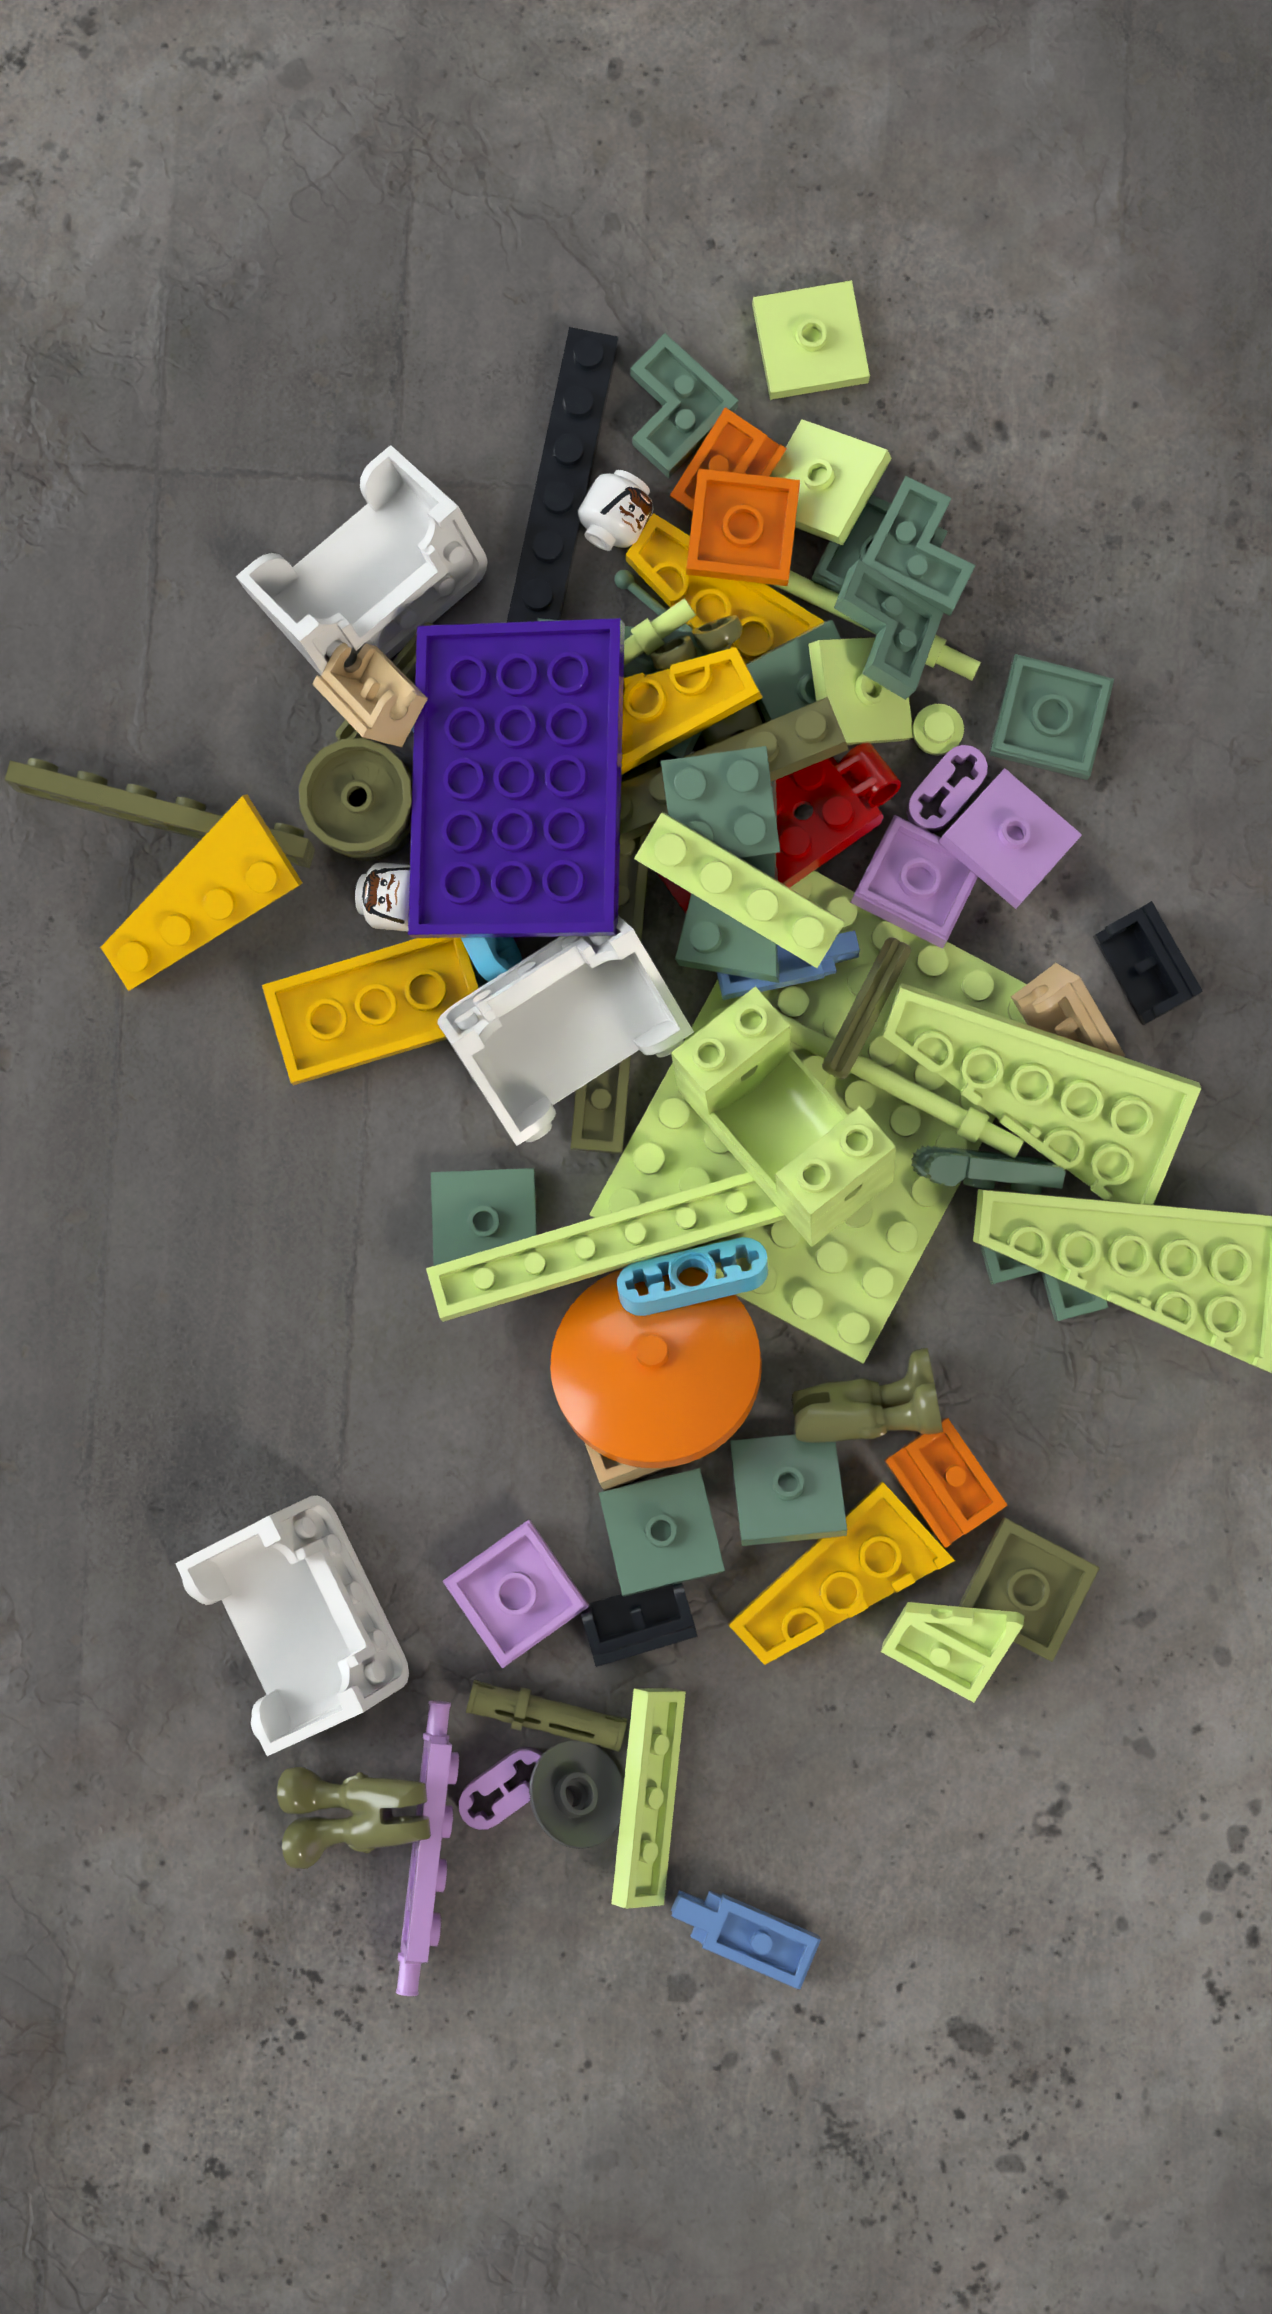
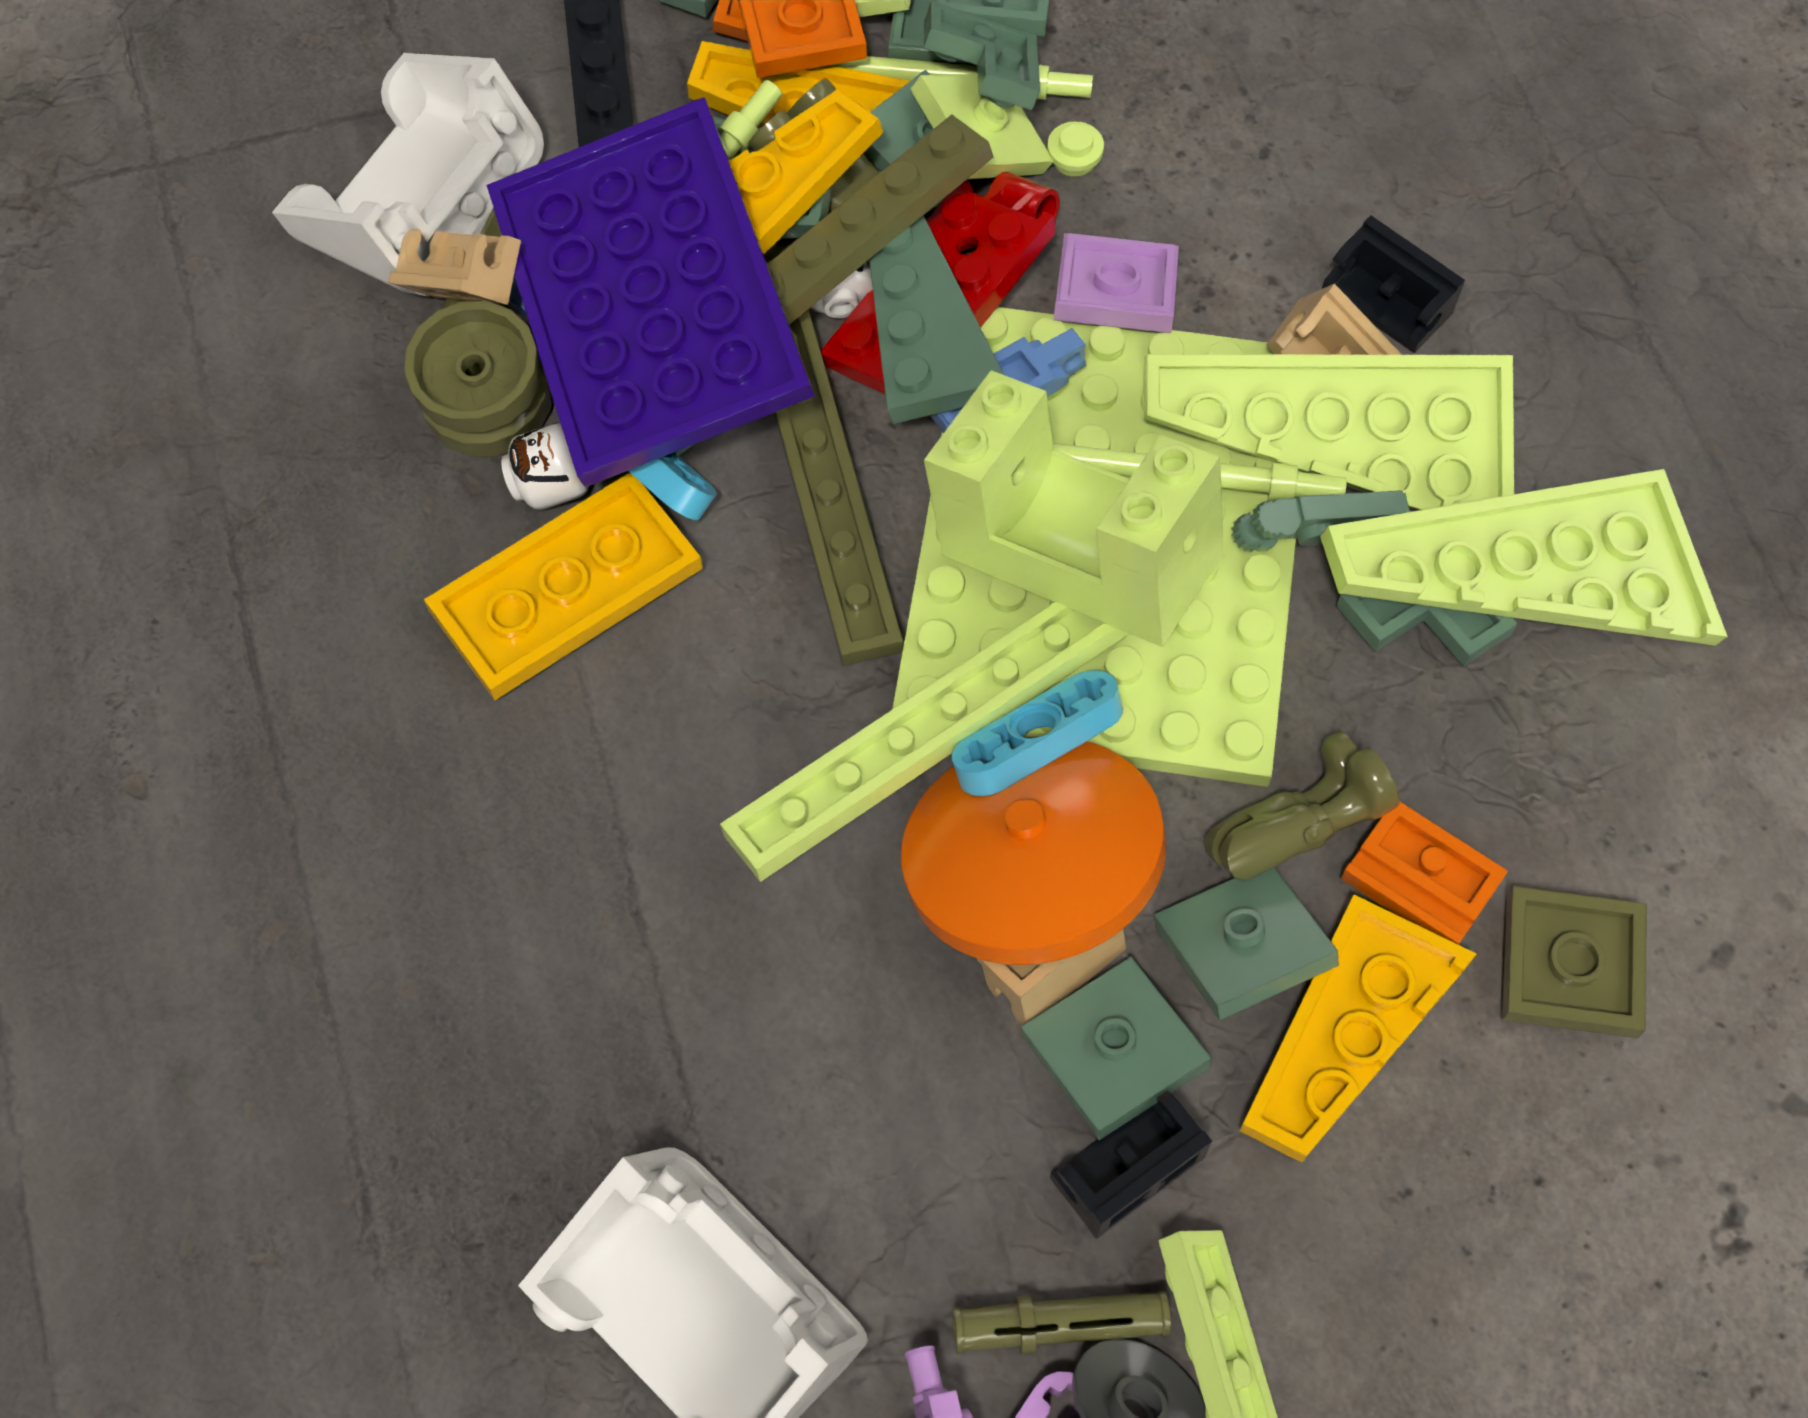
camera: 20 degrees left, 20 degrees down
(138, 805) = (252, 466): olive plate -> none
(211, 890) = (331, 521): yellow wing -> none
(481, 1210) = (757, 753): sand green plate -> none
(515, 1593) = (965, 1182): lavender plate -> none
(562, 1024) = (791, 515): white windscreen -> none
(615, 510) = (661, 48): white head -> none
(725, 799) = (880, 240): sand green plate -> none
(739, 889) = (932, 304): yellowish green plate -> none
(866, 1008) = (1117, 400): olive axle -> none
(937, 782) = (1098, 194): lavender beam -> none
(953, 1643) = (1520, 1050): yellowish green wing -> none
(1010, 838) = (1194, 216): lavender plate -> none
(1051, 717) = (1186, 102): sand green plate -> none

